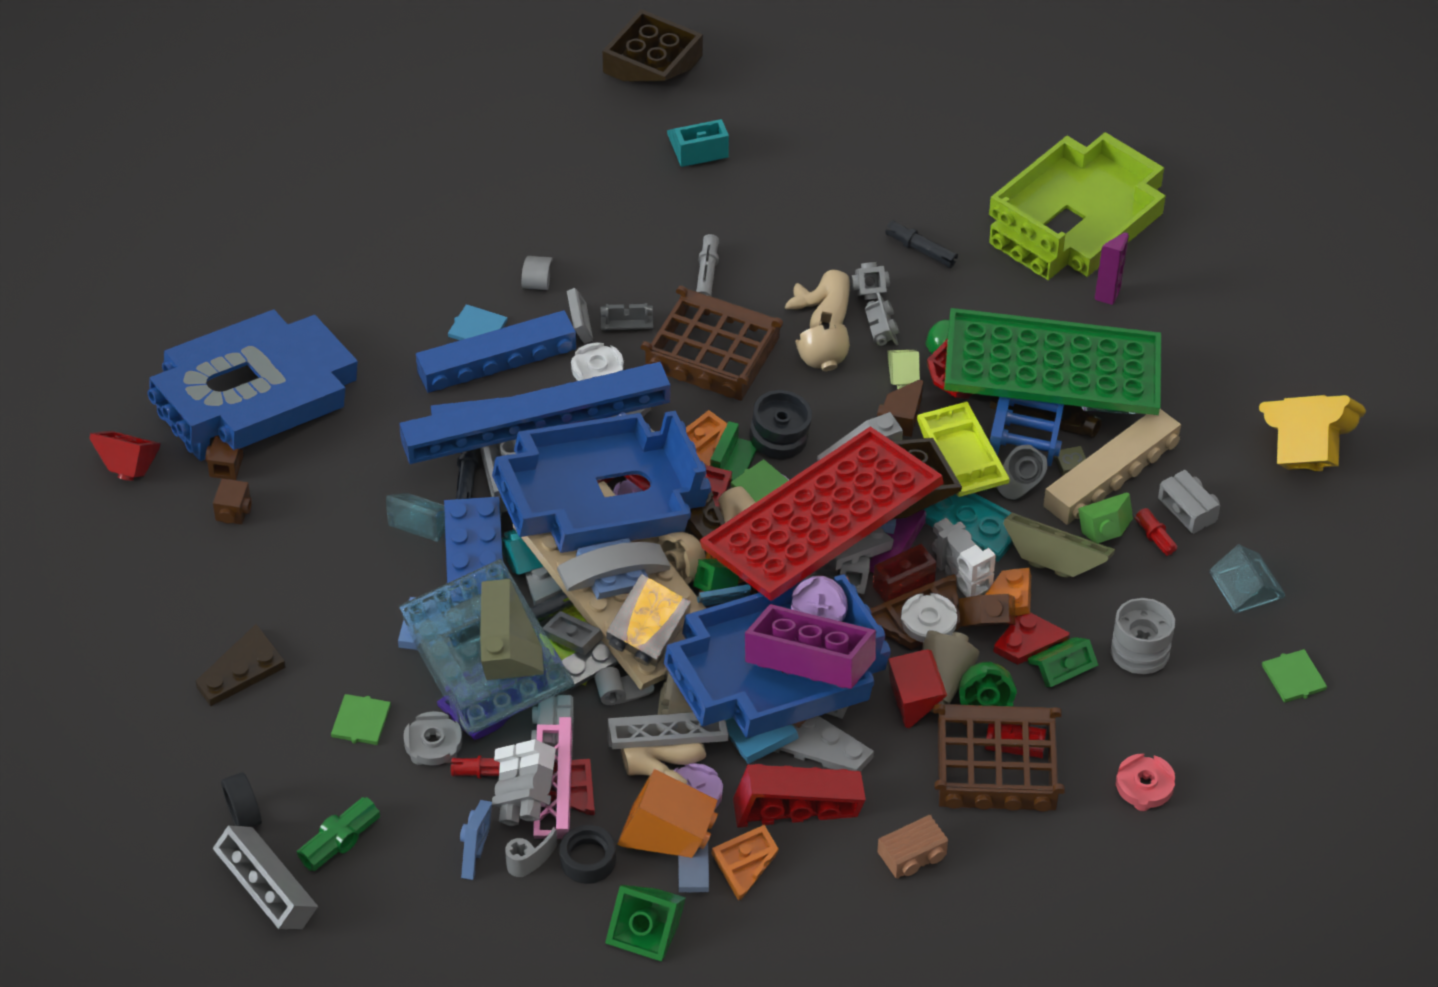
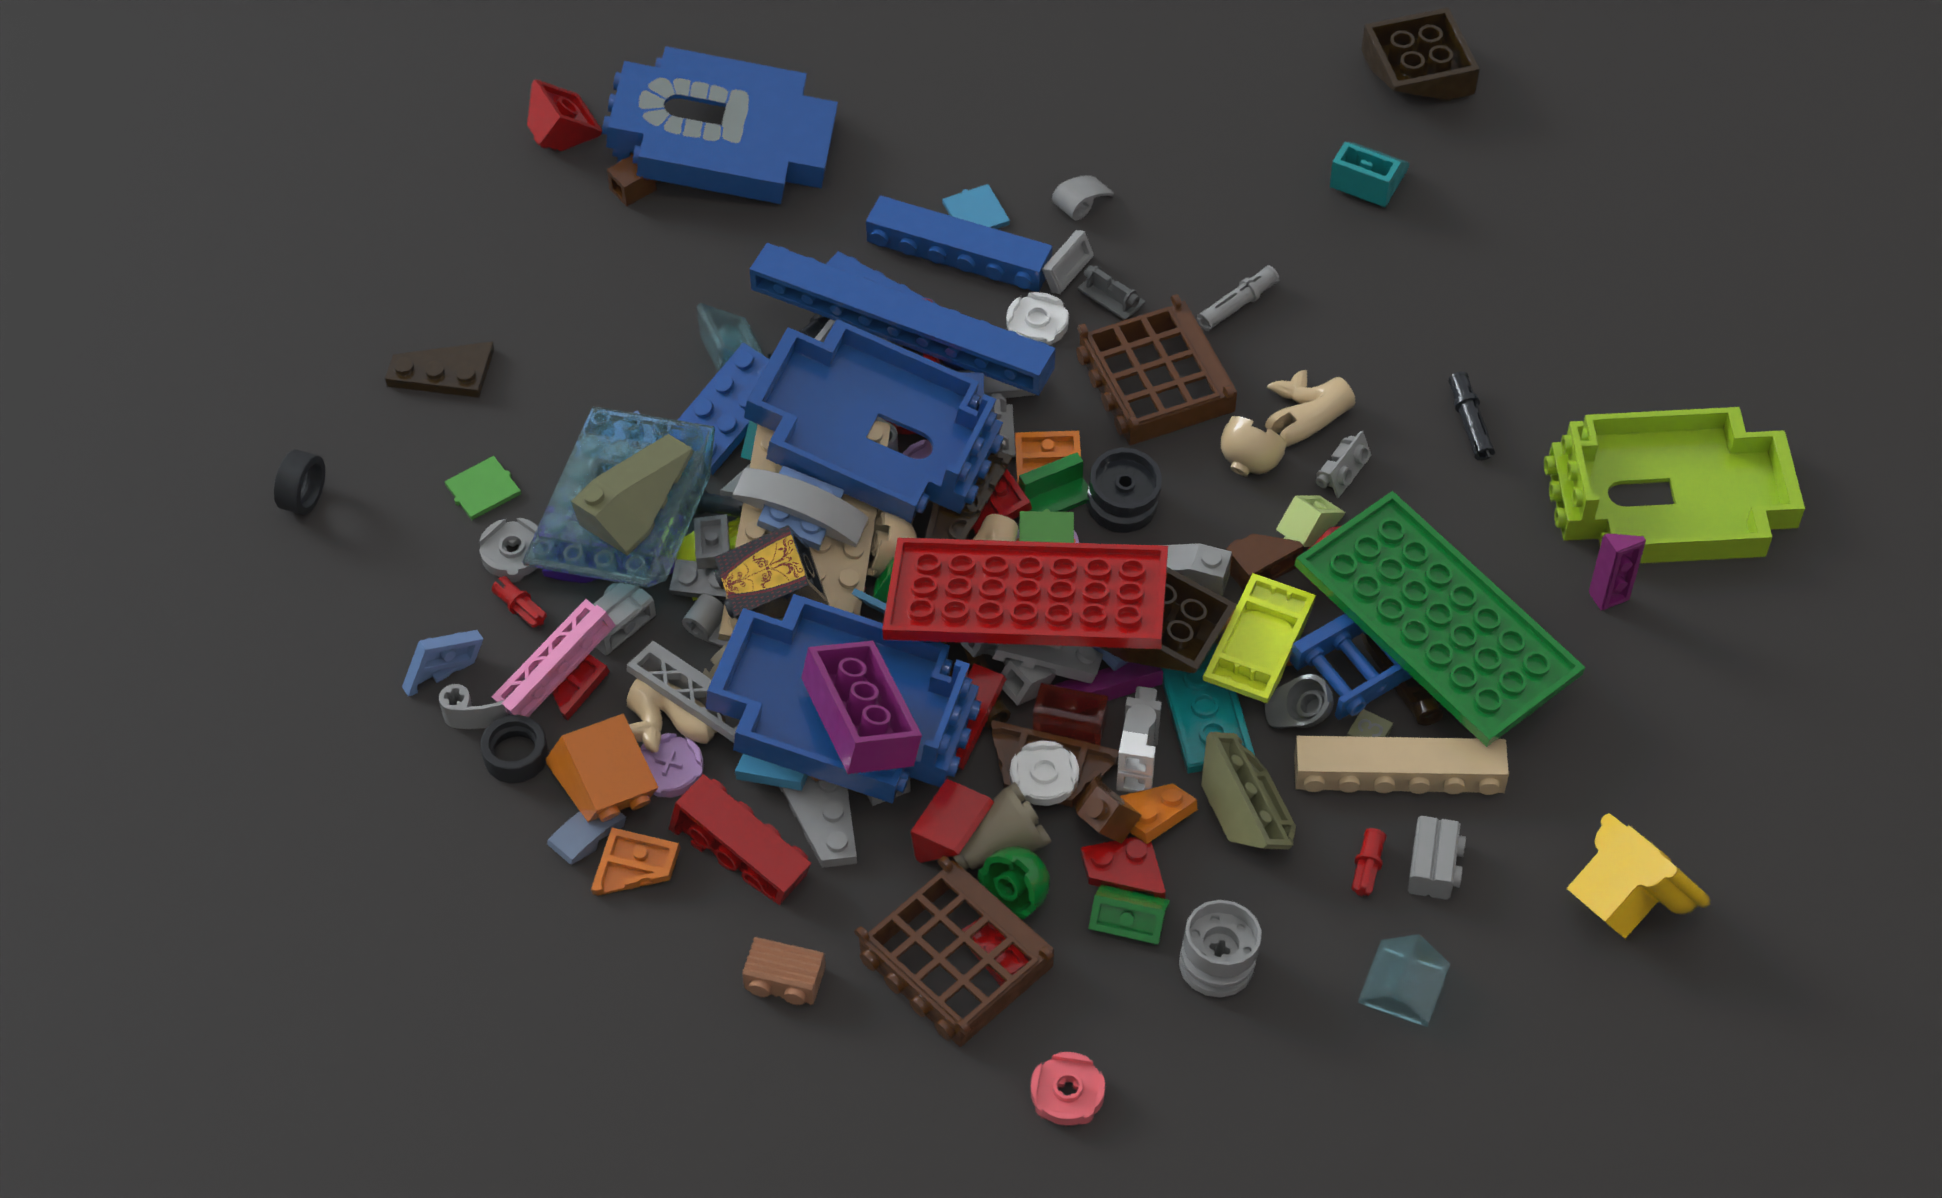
camera: 45 degrees right, 5 degrees up
(232, 501) = (592, 221): reddish brown brick -> none
(265, 877) = (246, 561): light grey brick -> none
(338, 834) = (347, 570): green piece -> none
(523, 781) = (522, 641): light grey hips -> none
(645, 920) = (489, 845): green slope -> none
(820, 598) = (926, 677): lavender tile -> none
(880, 278) = (1361, 415): light grey brick -> none
(1106, 518) = (1331, 811): bright green slope -> none
(1294, 675) = (1341, 1110): bright green piece -> none

